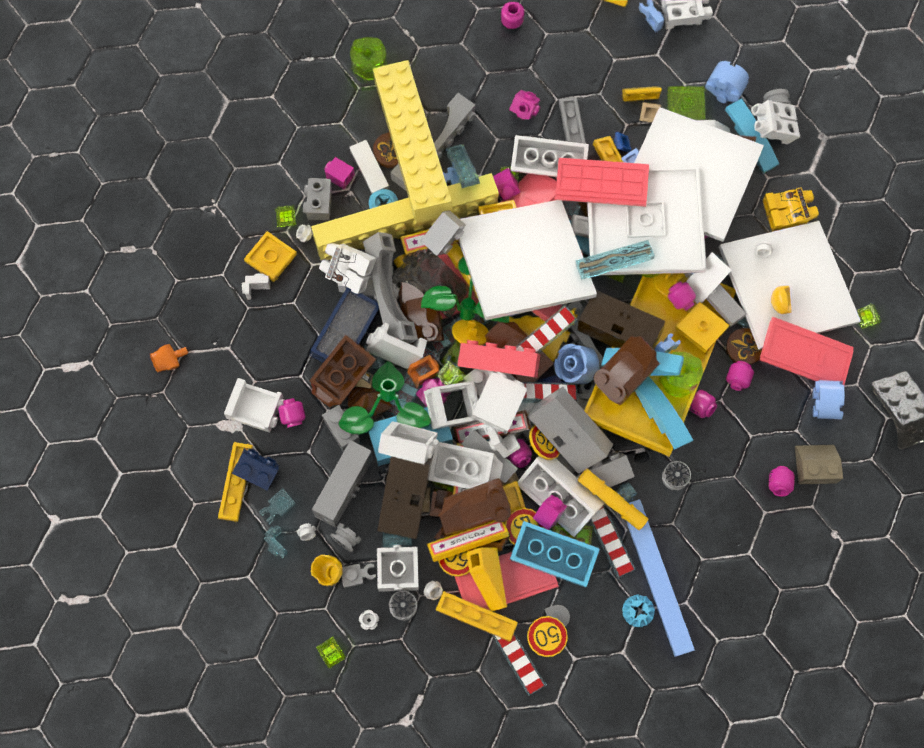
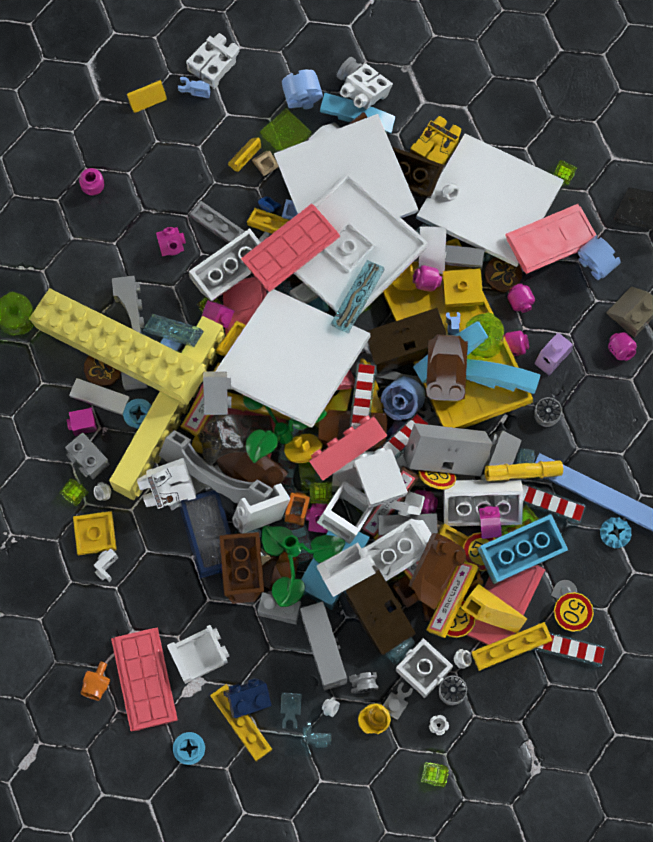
camera: 40 degrees left, 0 degrees up
(182, 455) = (181, 743): none -> medium azure gear
(202, 388) = (144, 679): none -> coral piece
(291, 413) = (232, 632): dark pink head -> none
(724, 437) = (555, 352): none -> lavender torso
(752, 215) = (419, 173): none -> dark brown slope
(781, 300) = (498, 216): yellow hair -> none

